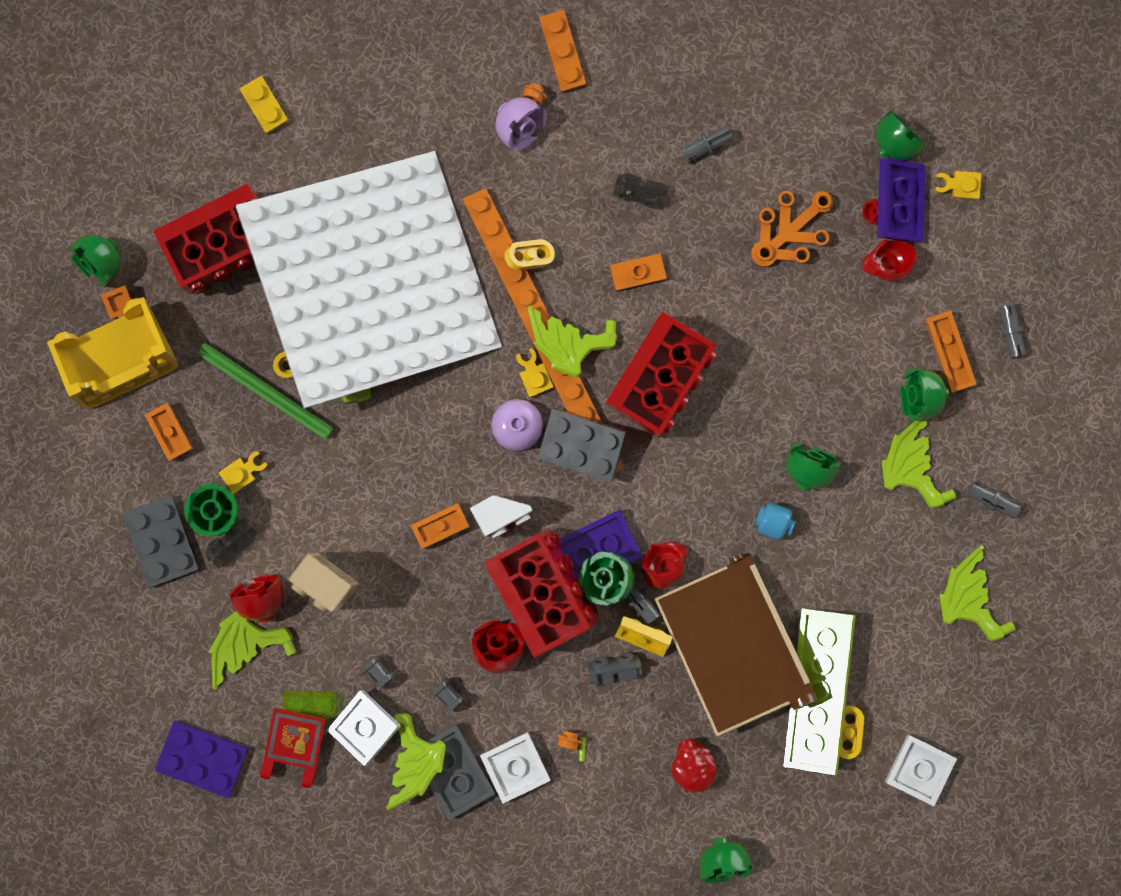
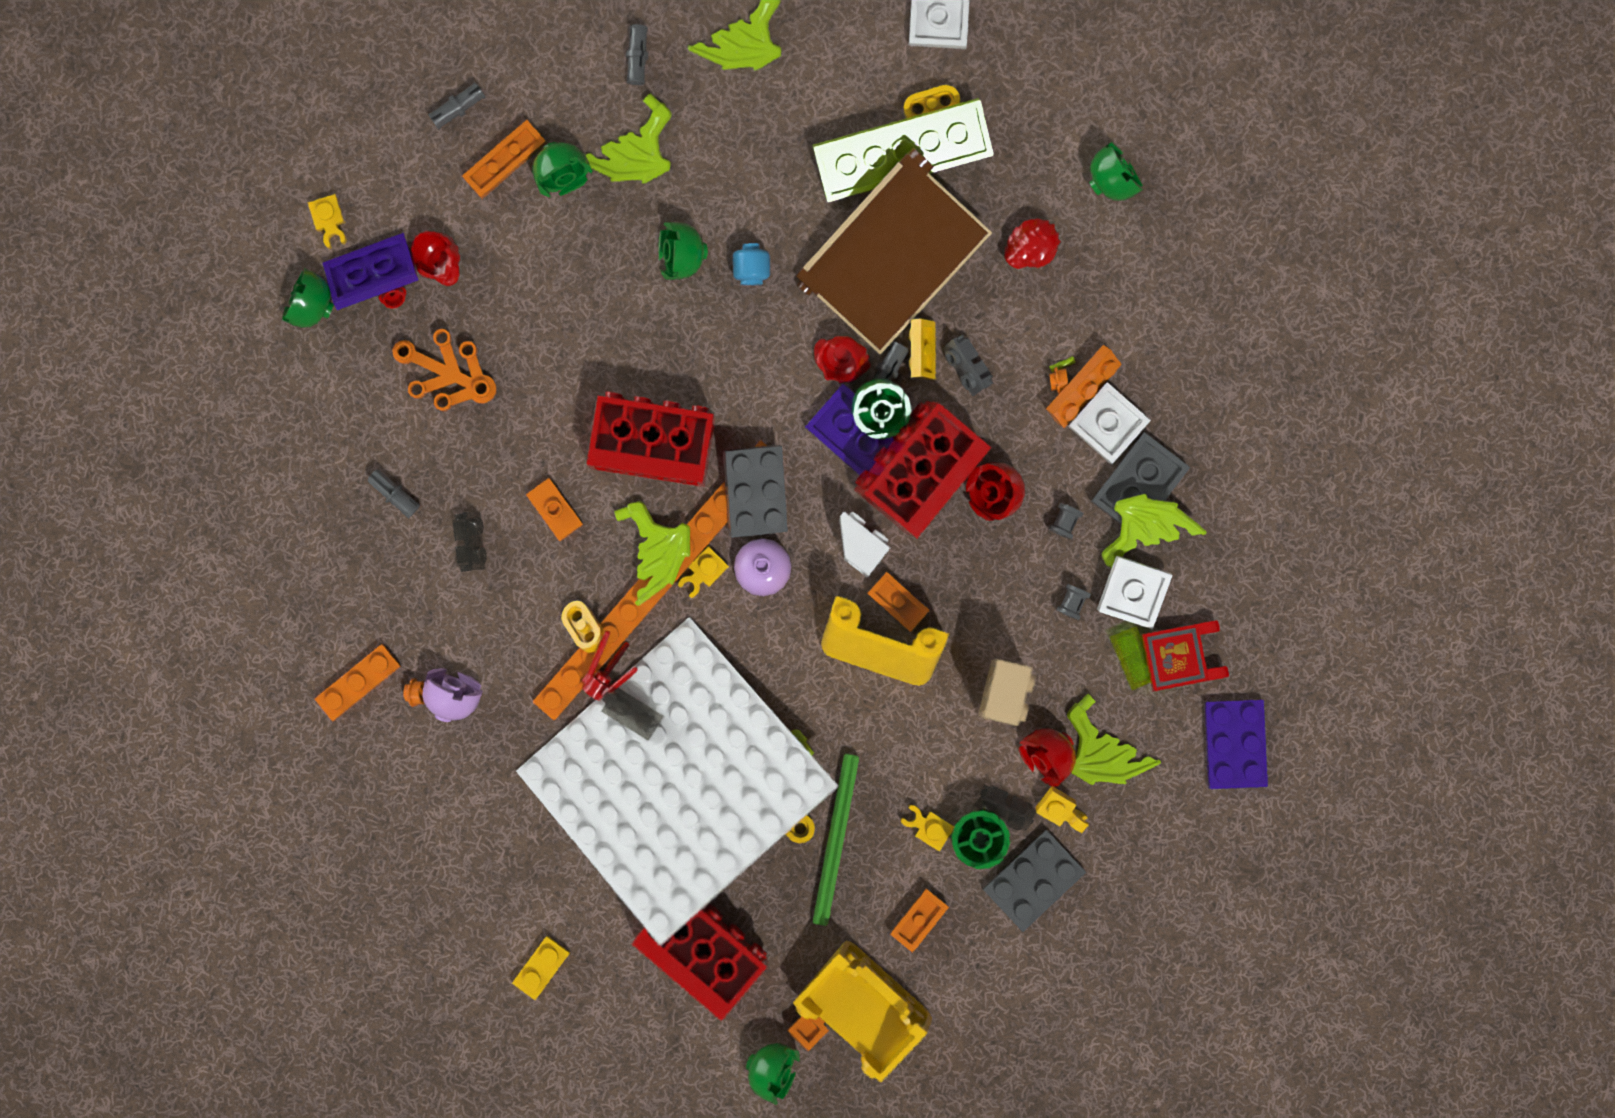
camera: 115 degrees left, 0 degrees up
(211, 589) = (1061, 807): none -> yellow plate
(382, 512) = (879, 654): none -> yellow windscreen
(440, 264) = (631, 713): none -> clear smoke hinge
(476, 247) = (599, 683): none -> red plant
(555, 759) = (1083, 386): none -> orange plate

